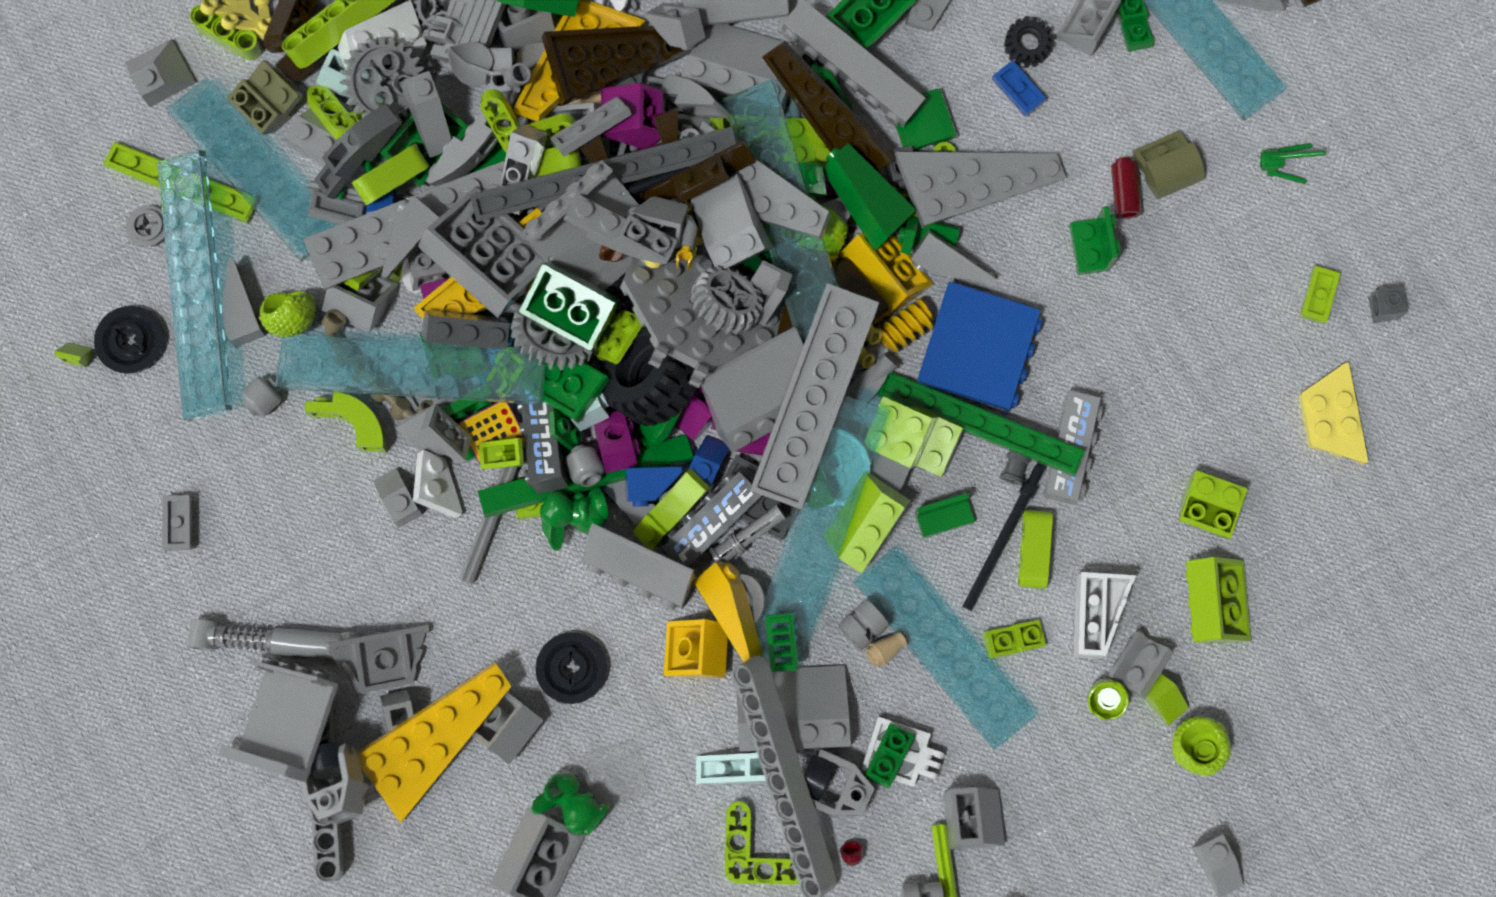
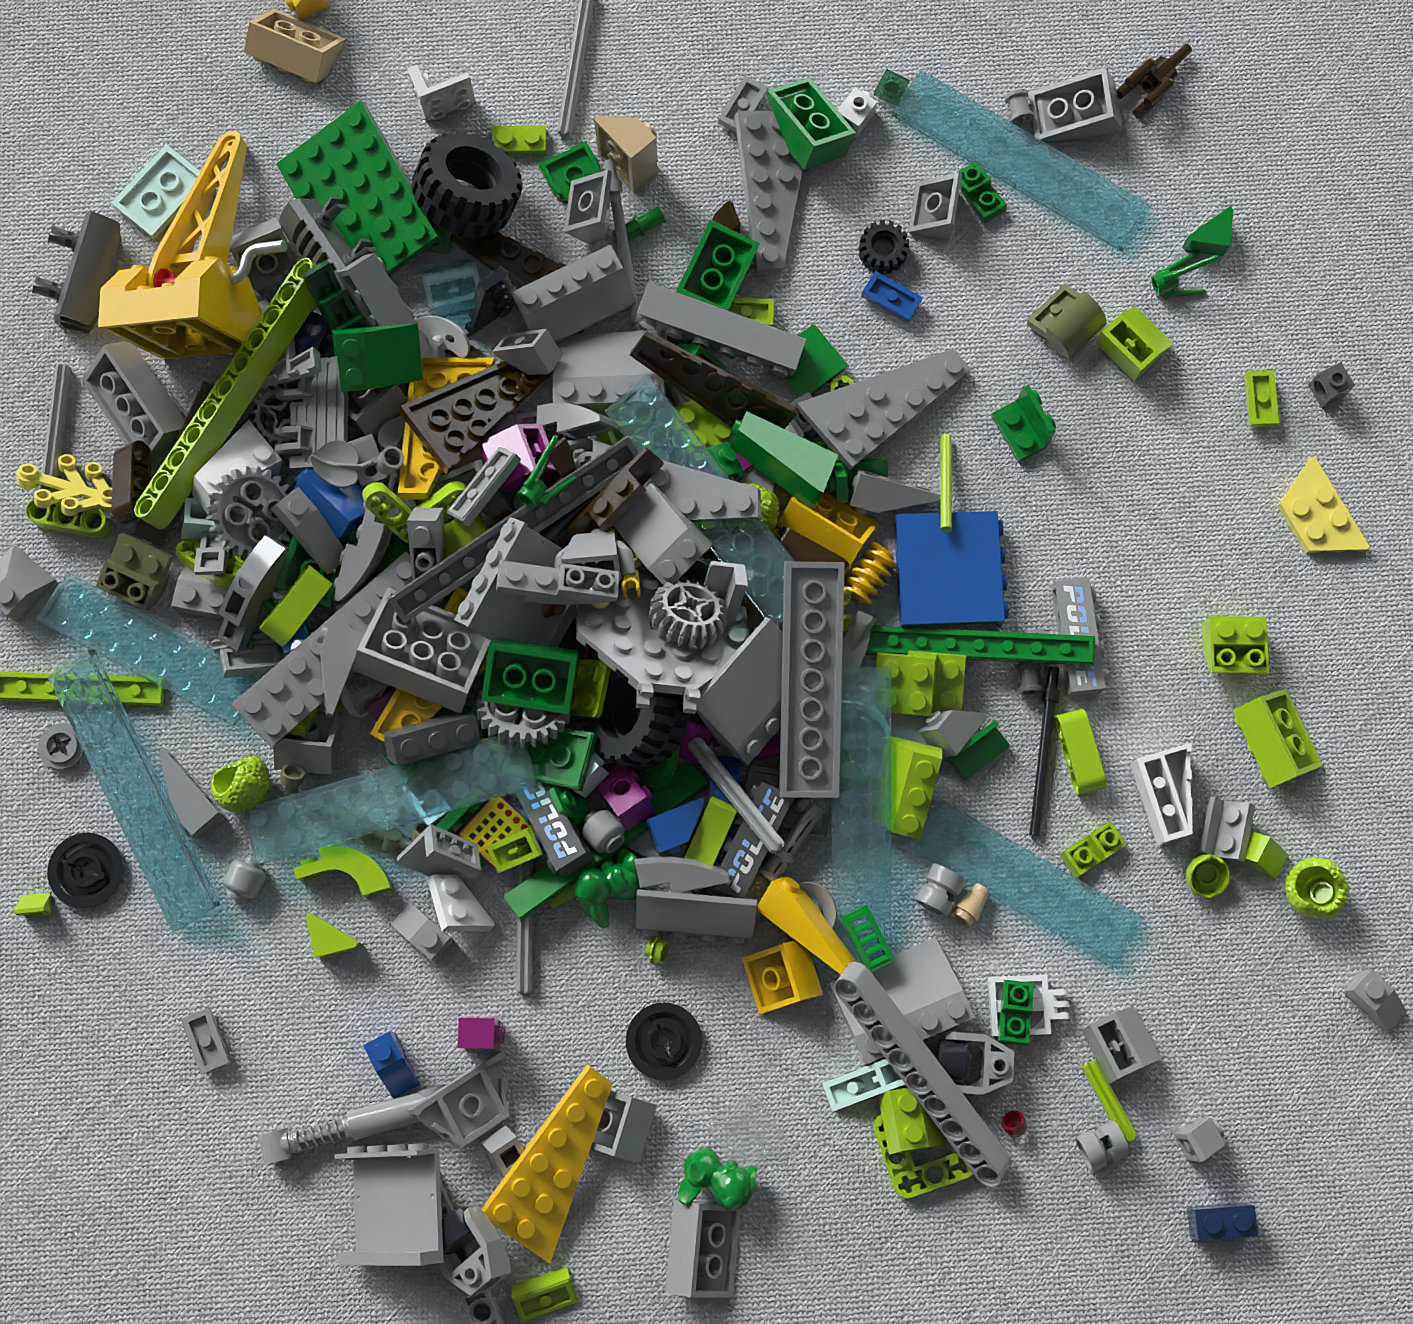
camera: 20 degrees left, 0 degrees up
(312, 473) = (327, 939): none -> lime slope
(328, 600) = (391, 1064): none -> blue slope
(334, 106) = (211, 556): none -> light grey slope
(385, 847) = (543, 1294): none -> lime slope
(412, 601) = (480, 1033): none -> magenta brick
(458, 100) = (339, 506): none -> blue slope
(595, 587) = (657, 950): none -> lime plate
(631, 143) = (534, 489): none -> green plant
(636, 524) = (679, 872): none -> light grey slope
(711, 475) = (736, 795): none -> light grey axle
(756, 817) = (907, 1123): none -> lime slope
(892, 57) = (755, 309): none -> lime plate
(925, 487) = (951, 729): none -> light grey slope
(1004, 269) = (946, 483): none -> lime bar
(1126, 188) = (1034, 359): dark red brick -> none
(1222, 203) = (1133, 342): none -> lime slope
(1329, 134) = (1213, 236): none -> green slope

